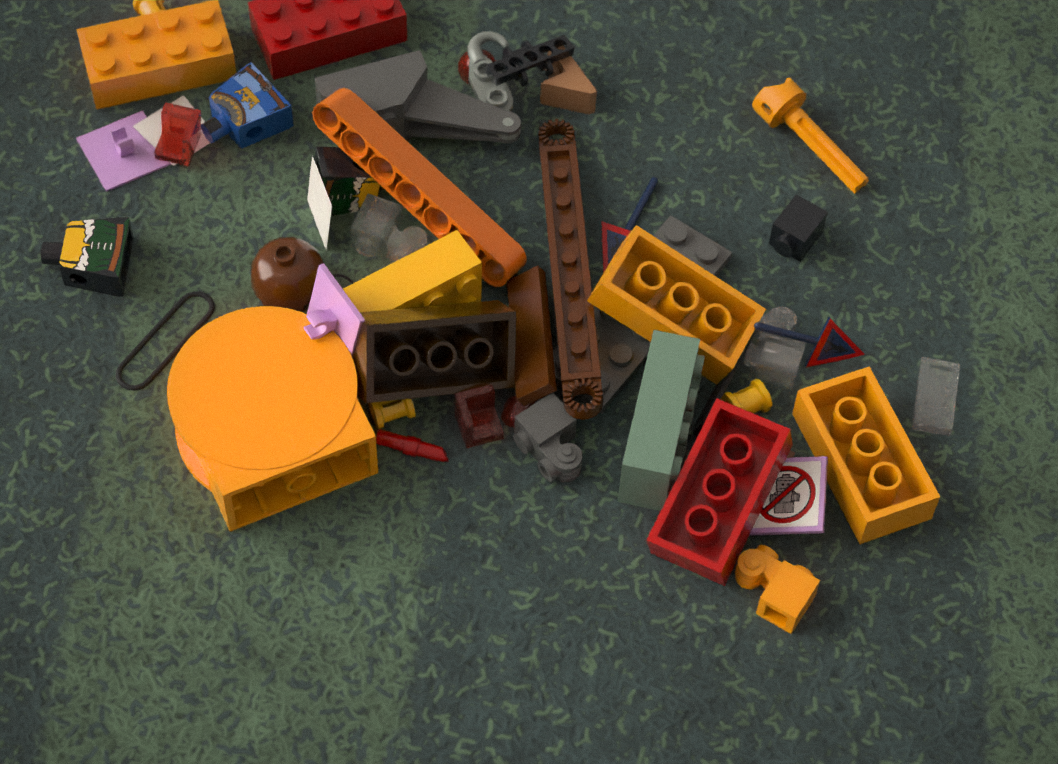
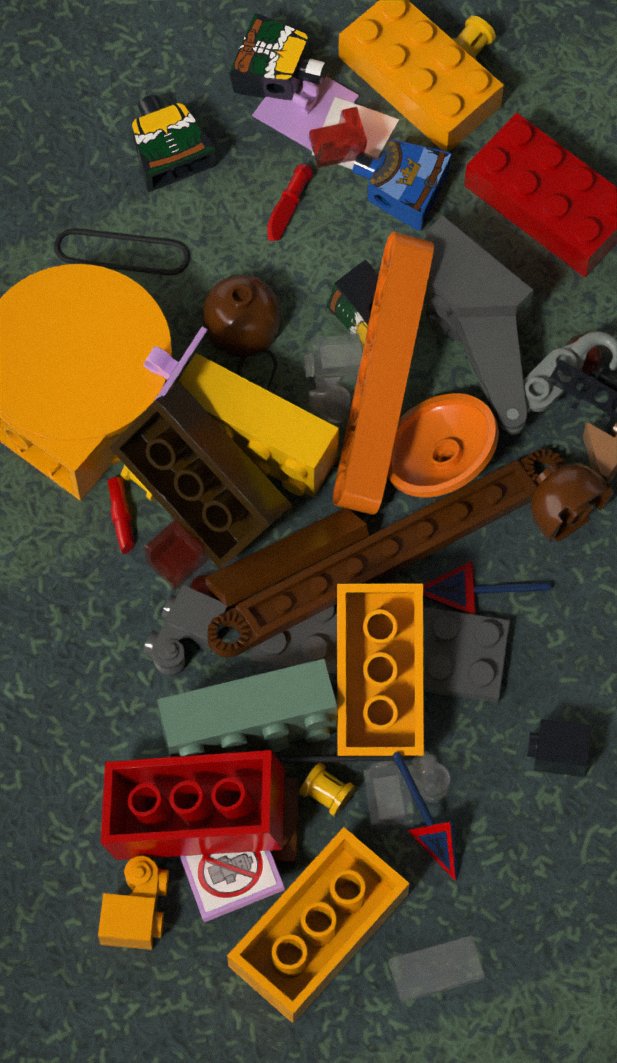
camera: 65 degrees right, 10 degrees up
(74, 145) = (274, 61): none -> torso
(203, 197) = (287, 203): none -> red piece
(319, 203) = (319, 302): white sticker -> none
(505, 164) = (442, 445): none -> orange dish
(598, 123) = (567, 498): none -> reddish brown cylinder

